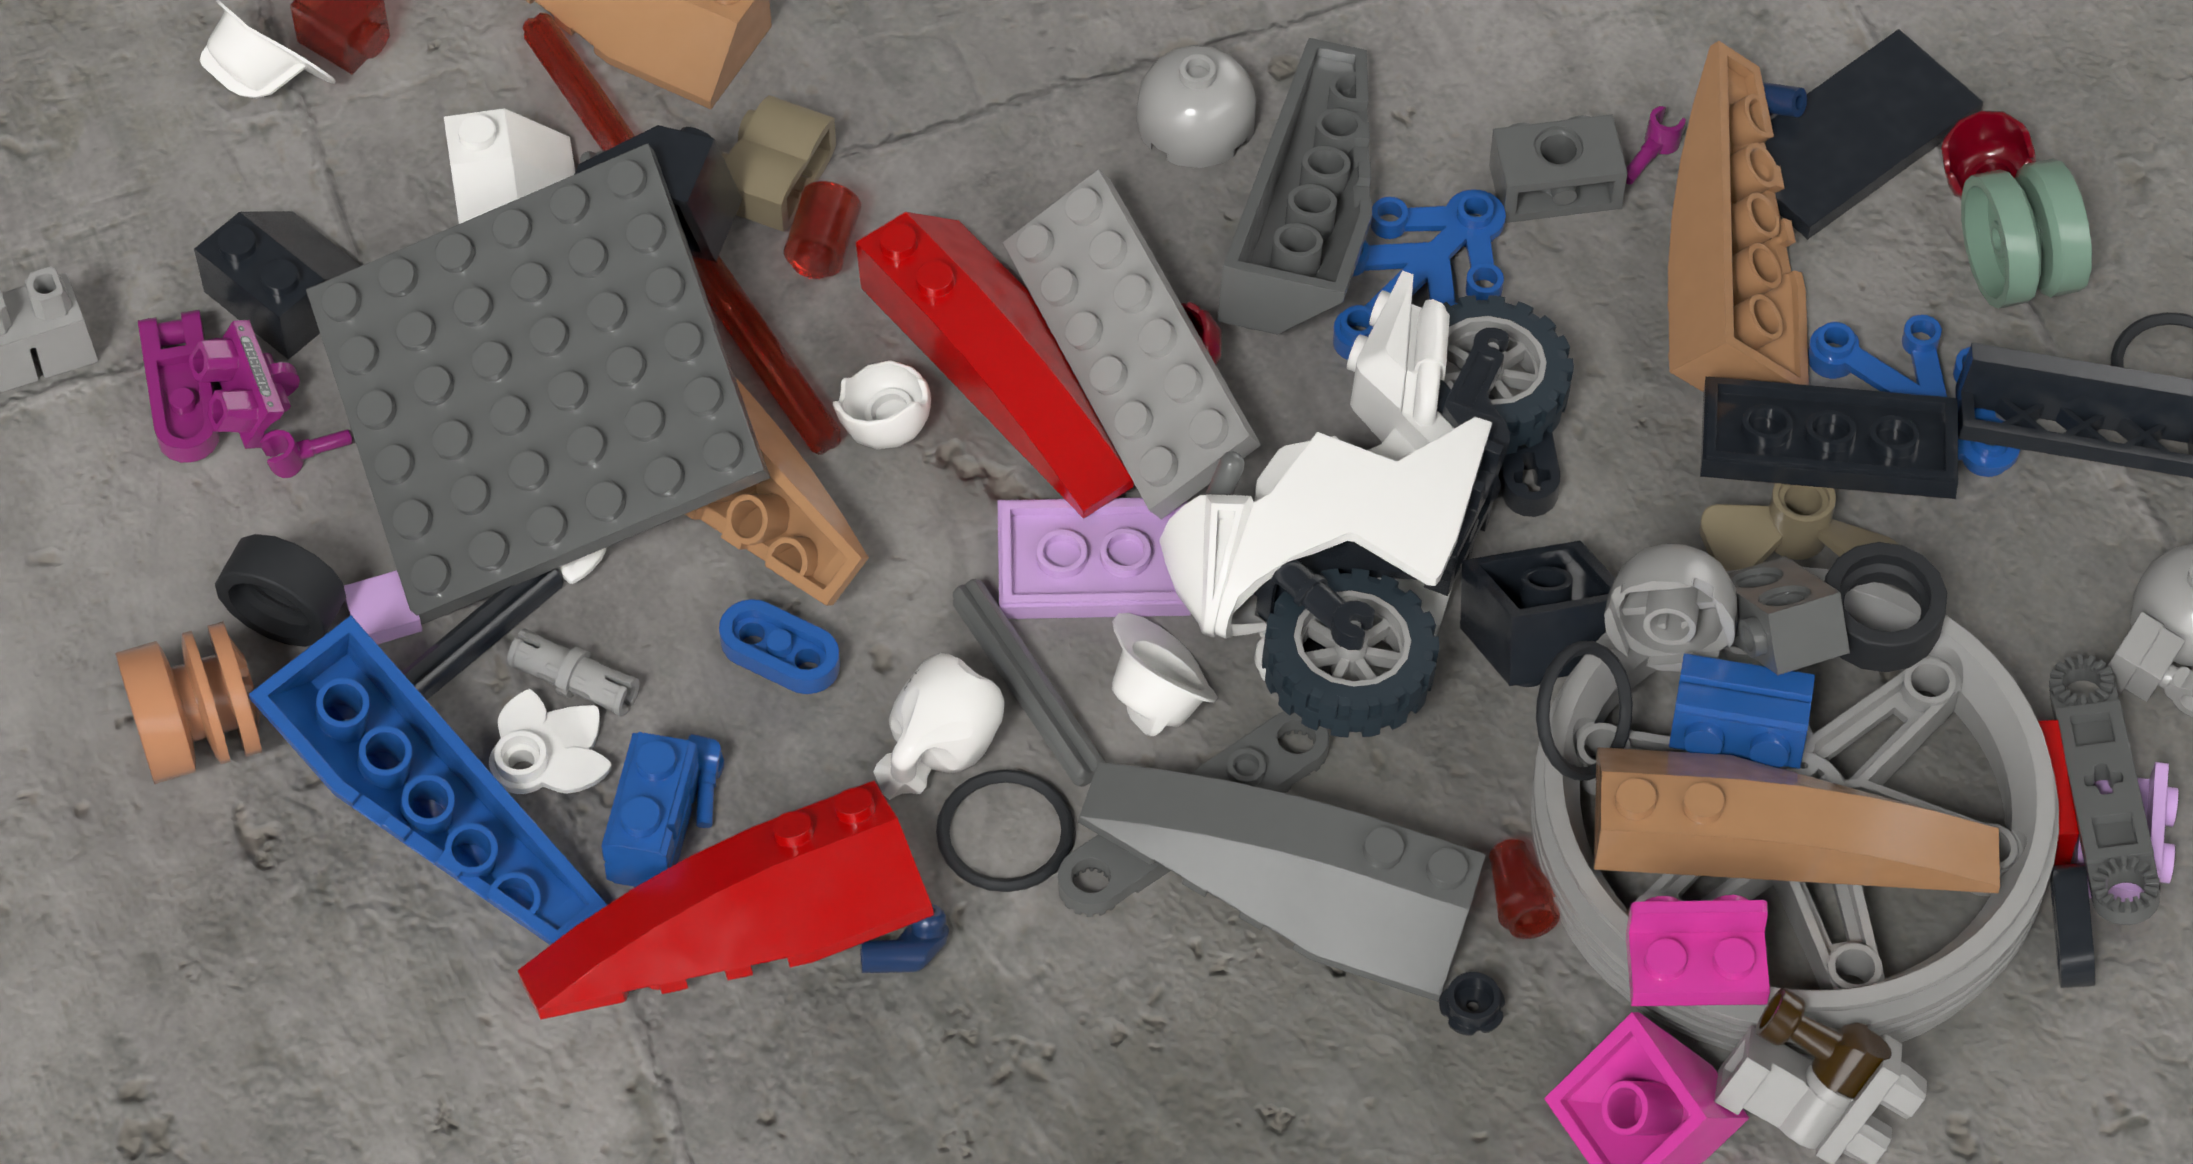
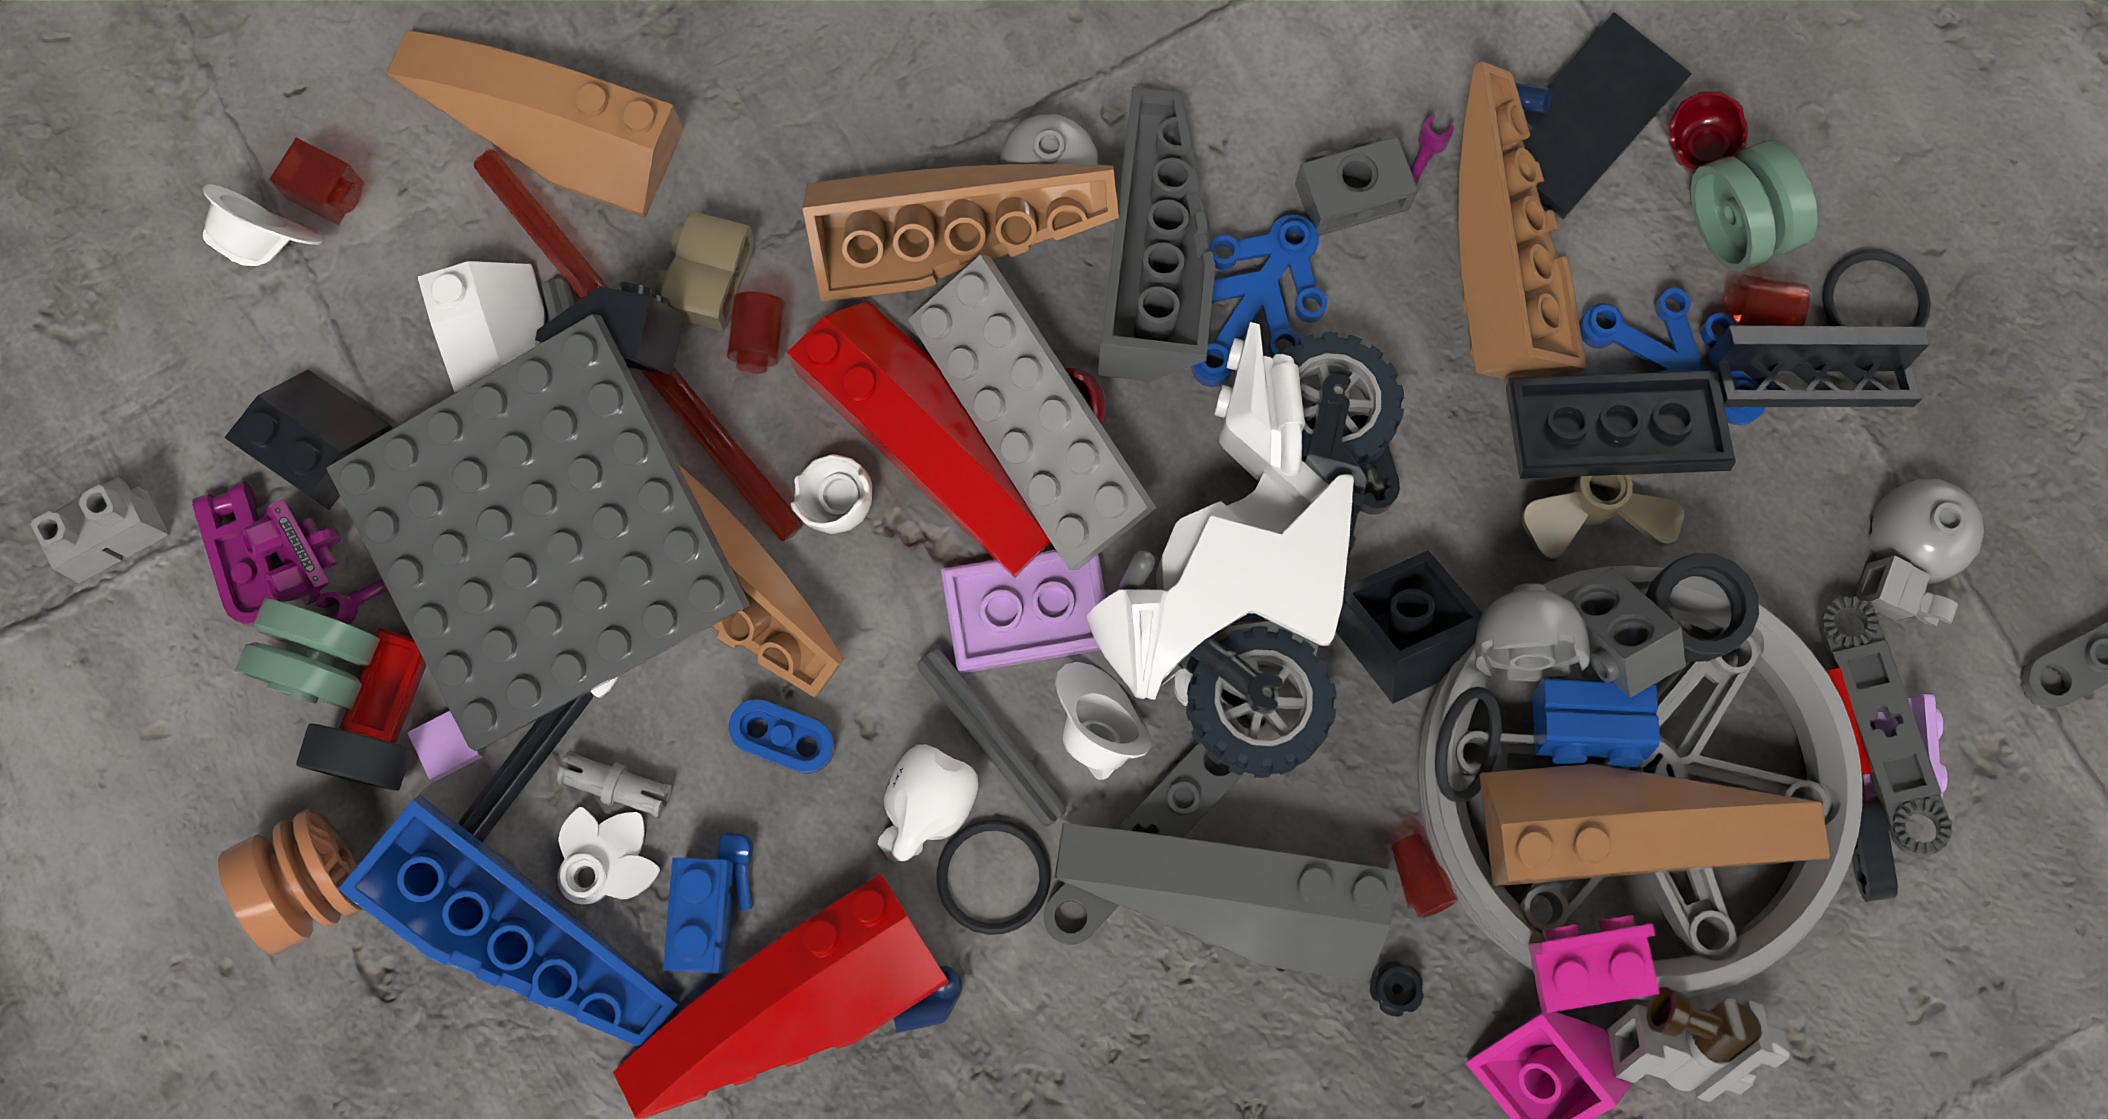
camera: 10 degrees left, 20 degrees up
(247, 473) = (307, 656): none -> sand green wheel
(336, 525) = (386, 688): none -> red tile
(1033, 143) = (931, 223): none -> medium nougat wedge
(2036, 335) = (1767, 302): none -> clear red brick

